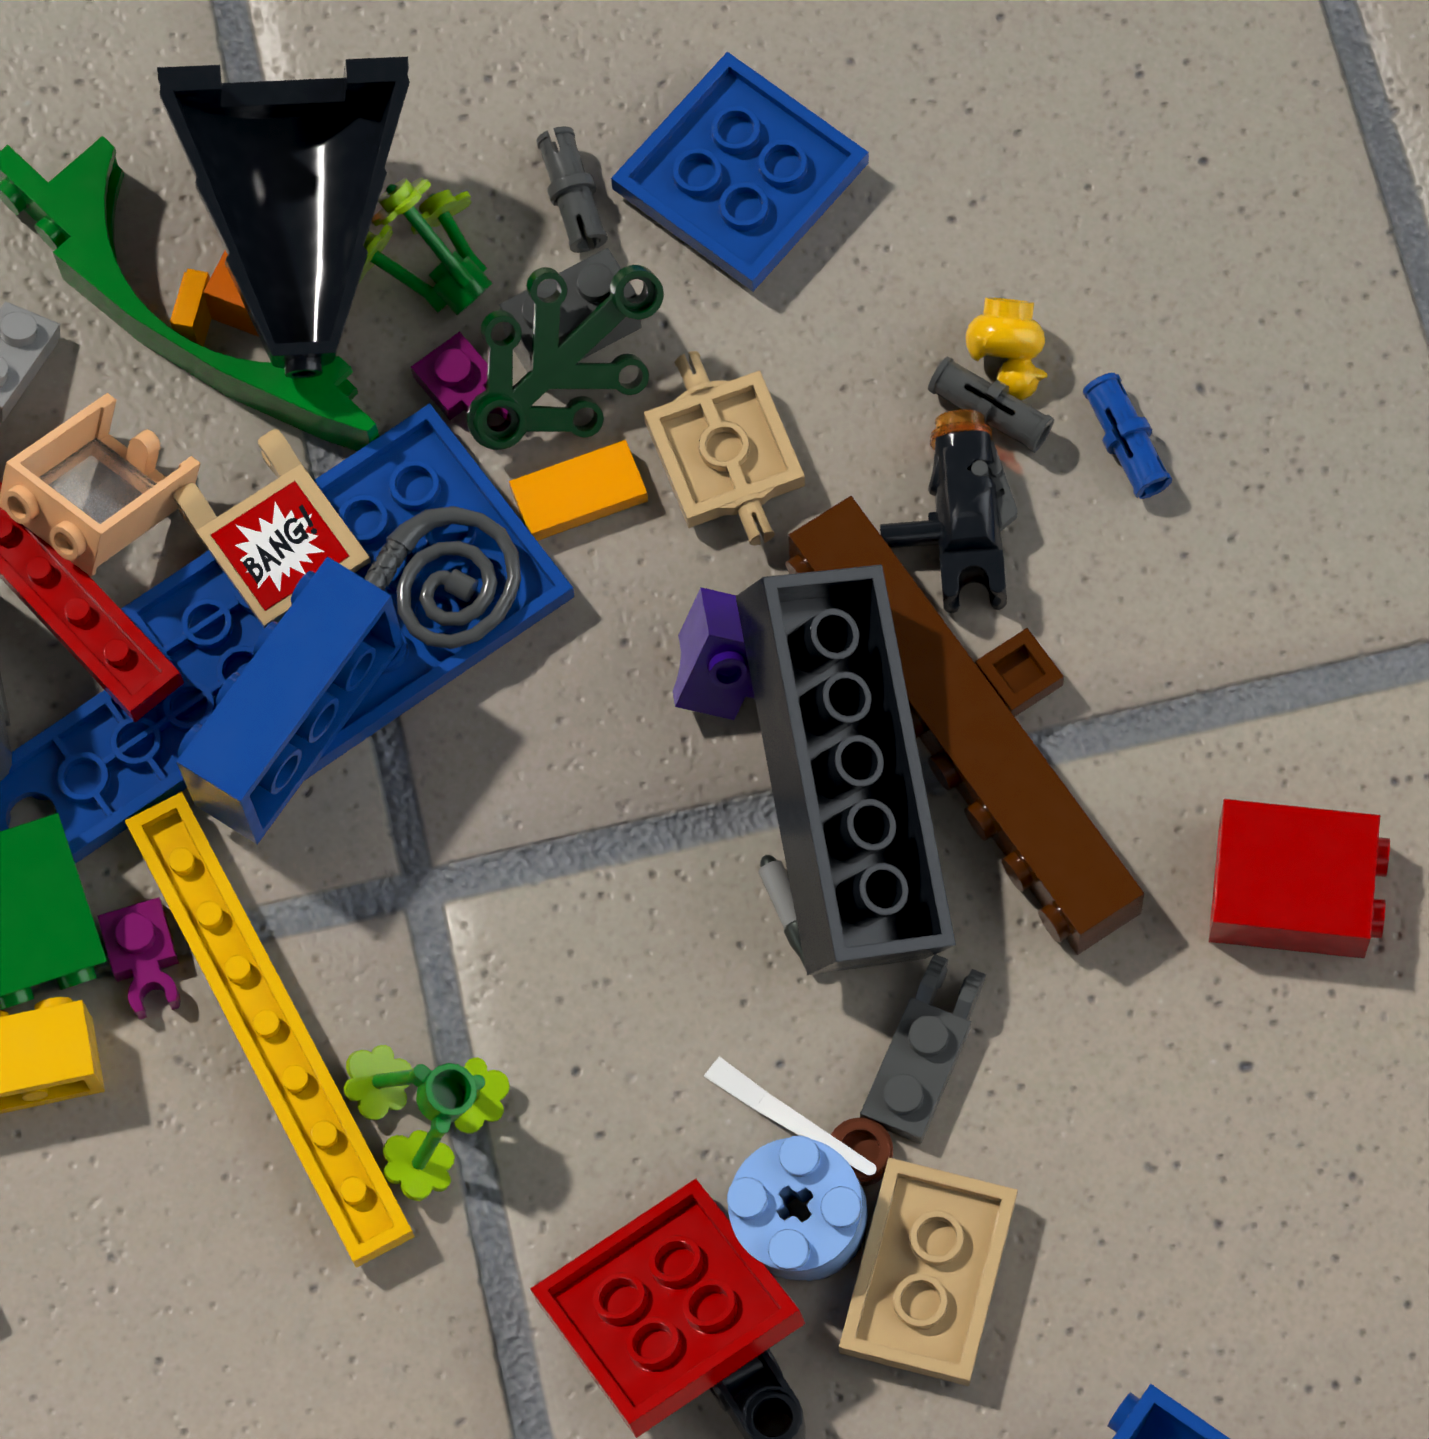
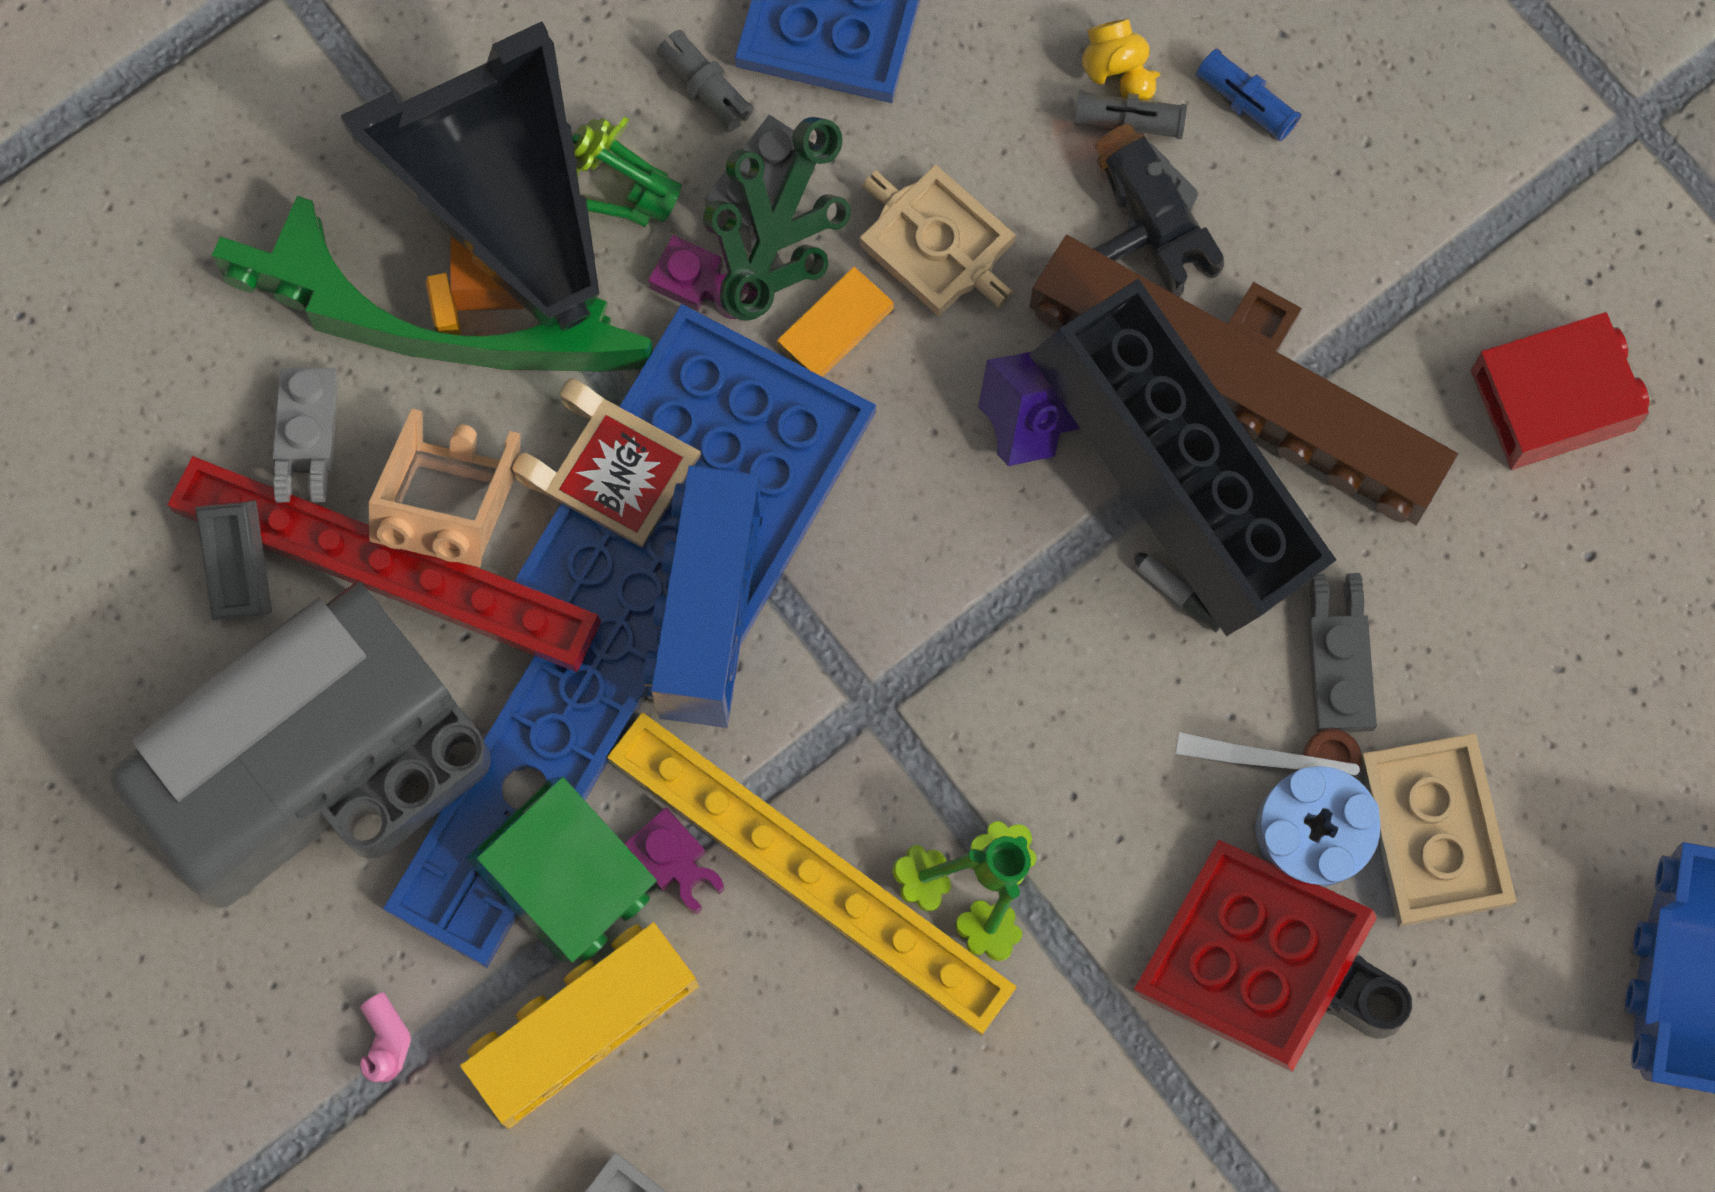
camera: 30 degrees left, 5 degrees up
(457, 583) = (784, 441): dark grey piece -> none

